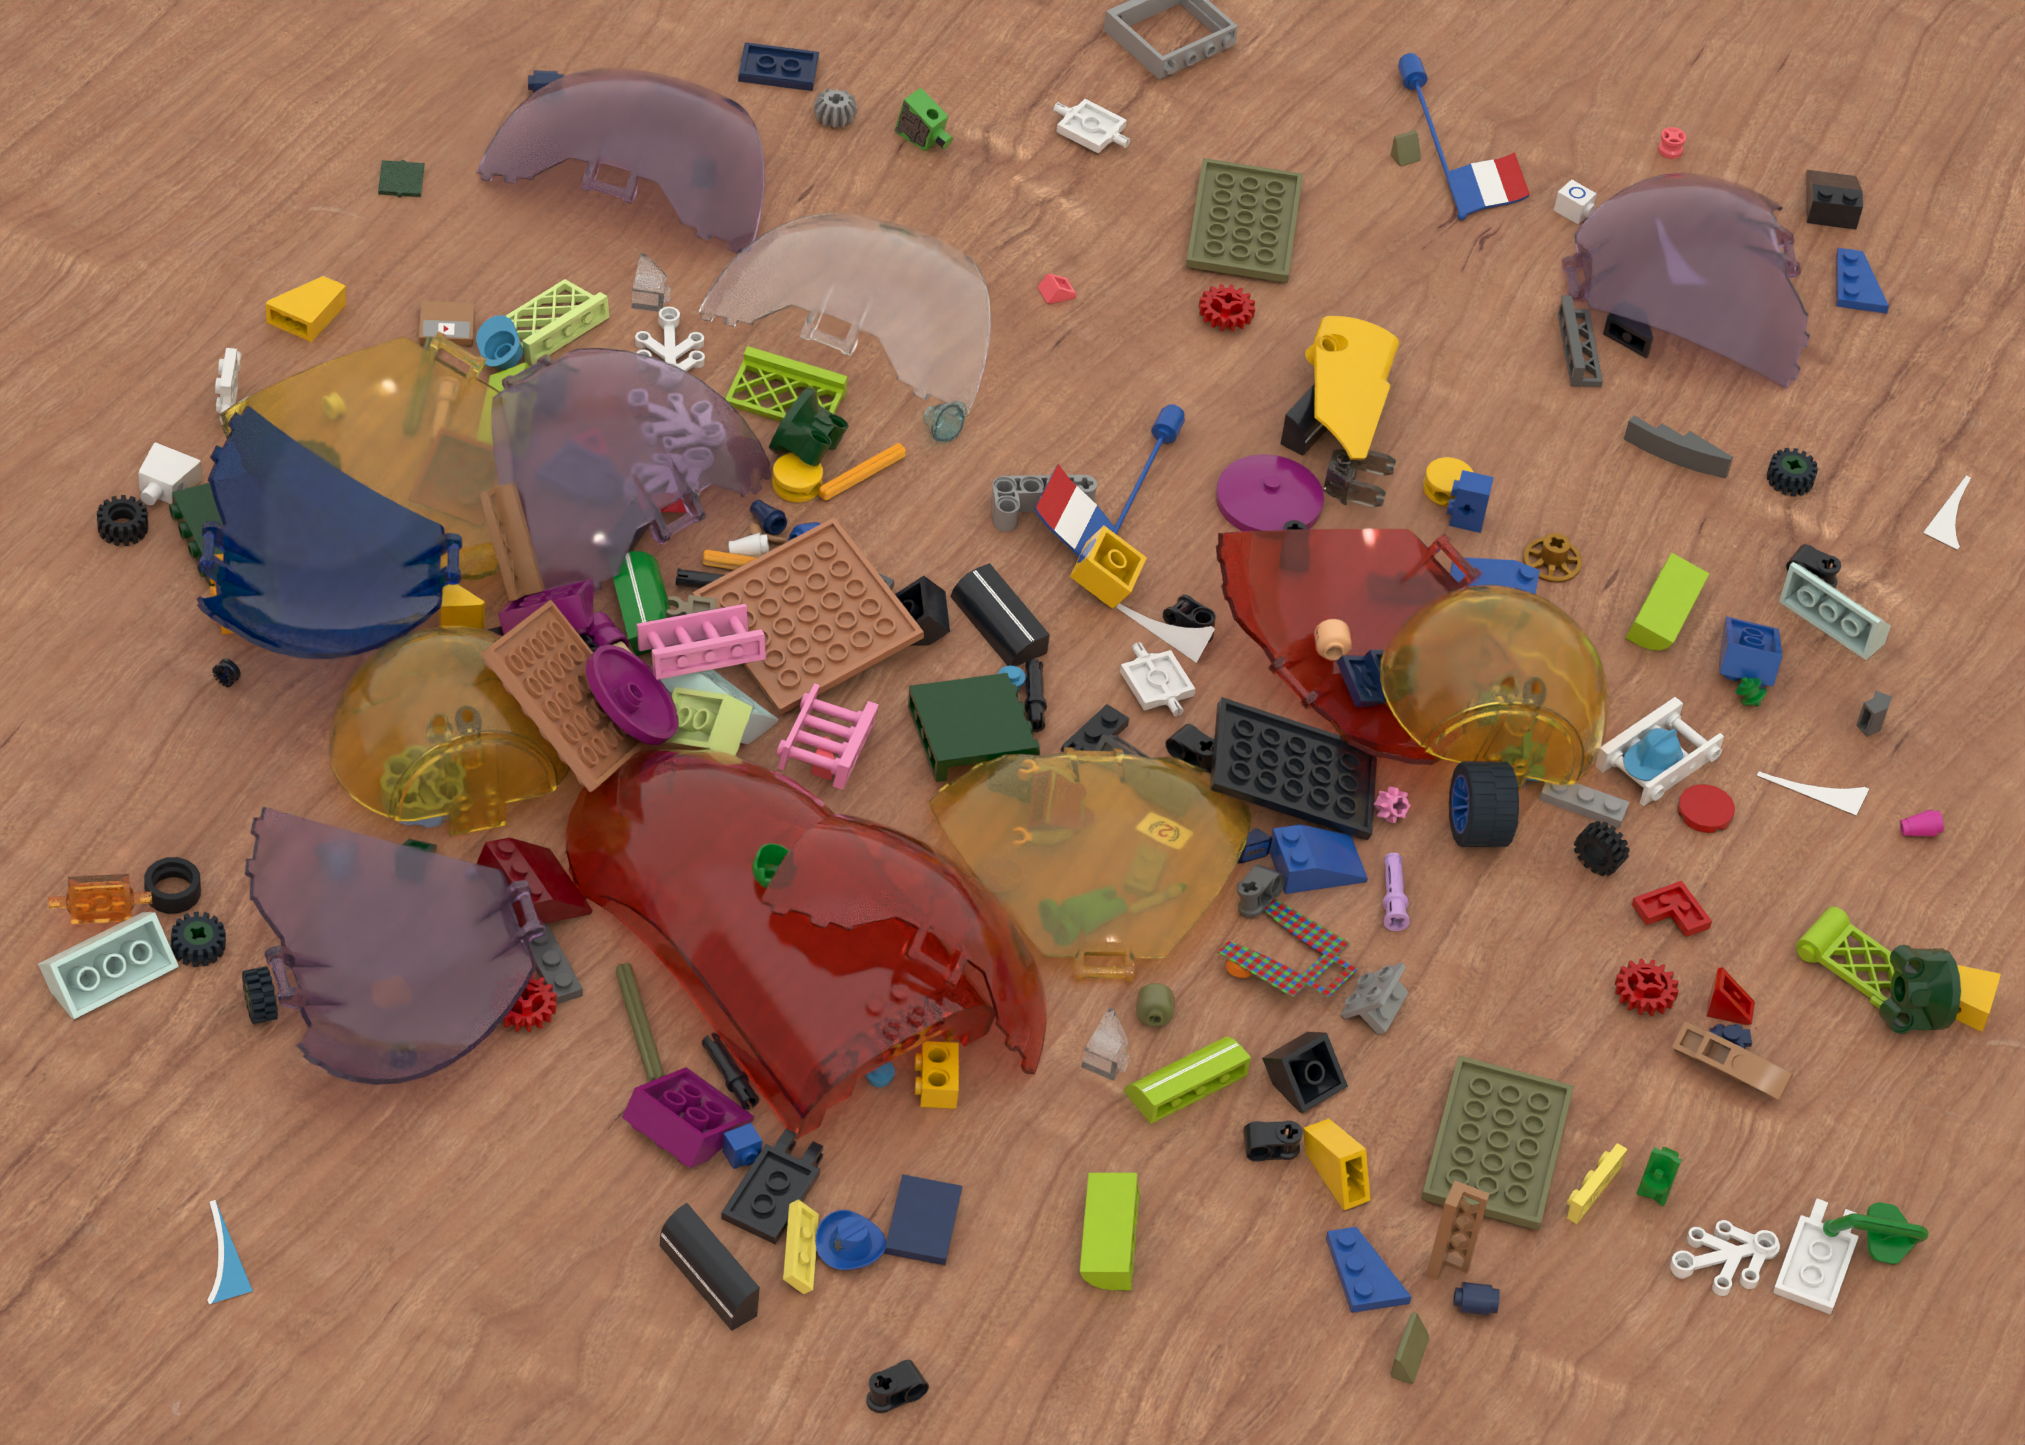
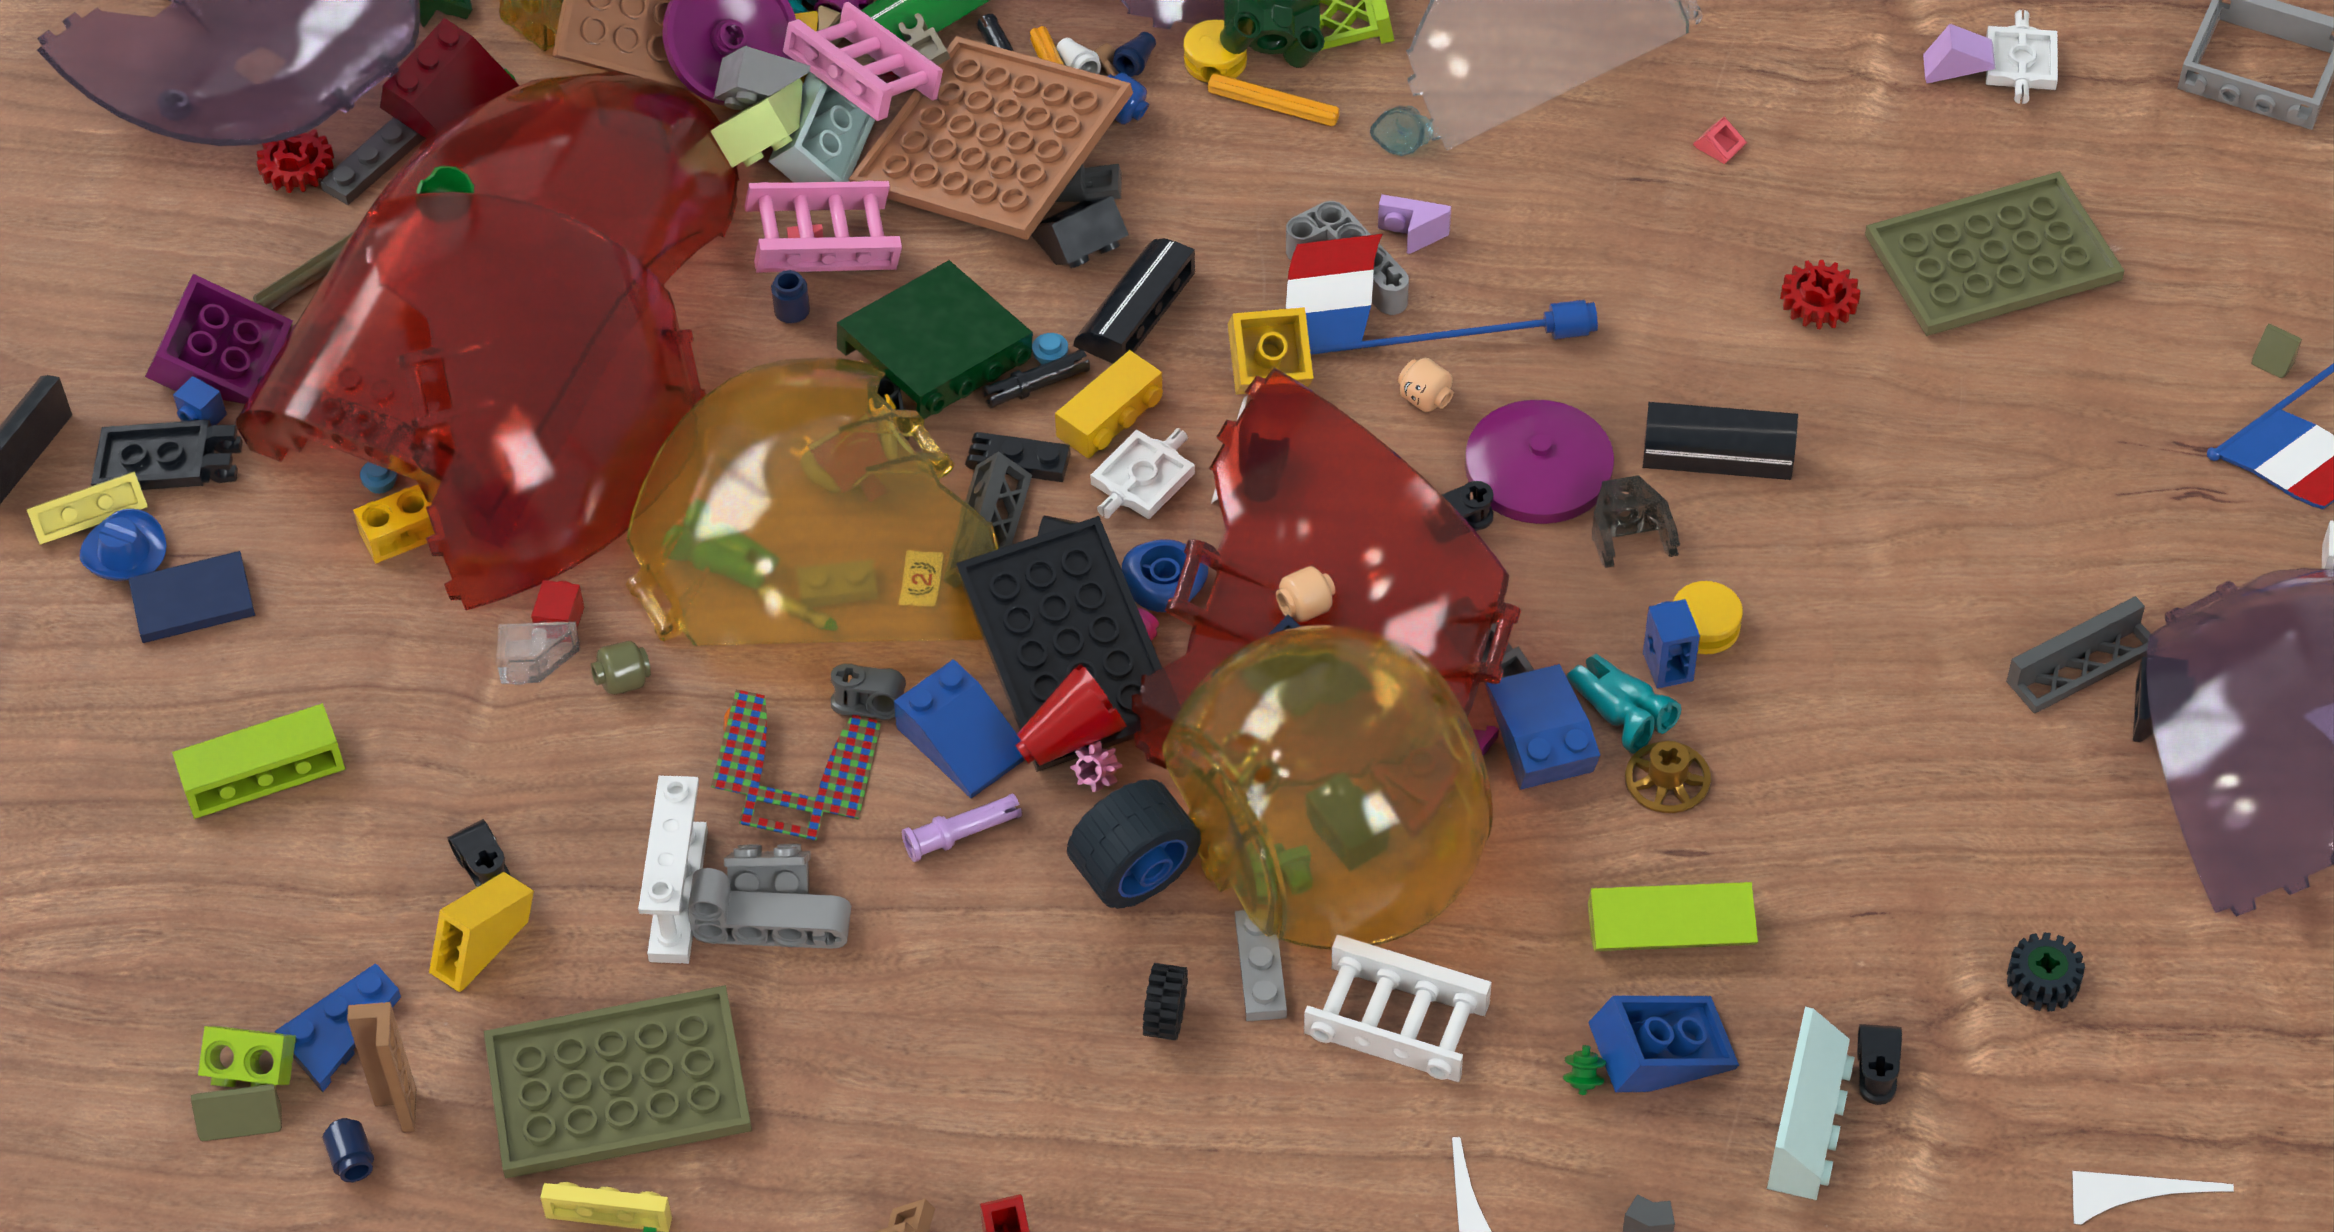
camera: 70 degrees right, 5 degrees up
(686, 700) = (753, 76): none -> light grey slope
(878, 782) = (790, 297): none -> dark blue brick
(1028, 453) = (1419, 219): none -> lavender slope
(1072, 151) = (1957, 54): none -> lavender slope
(1079, 1018) = (558, 603): none -> red brick
(1087, 668) = (1109, 404): none -> yellow brick
(1179, 513) = (1426, 384): none -> light nougat head
(1189, 1079) = (532, 744): lime brick -> none
(1256, 847) = (931, 656): slope -> none
(1260, 695) = (1154, 572): none -> blue hat
(1306, 1070) = (605, 847): black slope -> none
(1351, 378) = (1761, 444): yellow panel -> none
(1356, 1053) = (672, 857): none -> white fence
(1365, 788) = (1069, 720): none -> red cone
(1374, 1322) = (247, 1050): none -> lime brick
(1406, 1024) = (763, 917): none -> light grey beam
(1494, 544) = (1624, 701): none -> teal piece
(1646, 987) = (984, 1151): red gear -> none
(1653, 754) = (1373, 997): dark azure piece -> none
(1673, 902) = (1141, 1123): red plate -> none
(1686, 450) = (1977, 834): dark grey slope -> none
(1706, 808) = (1342, 1099): red tile -> none

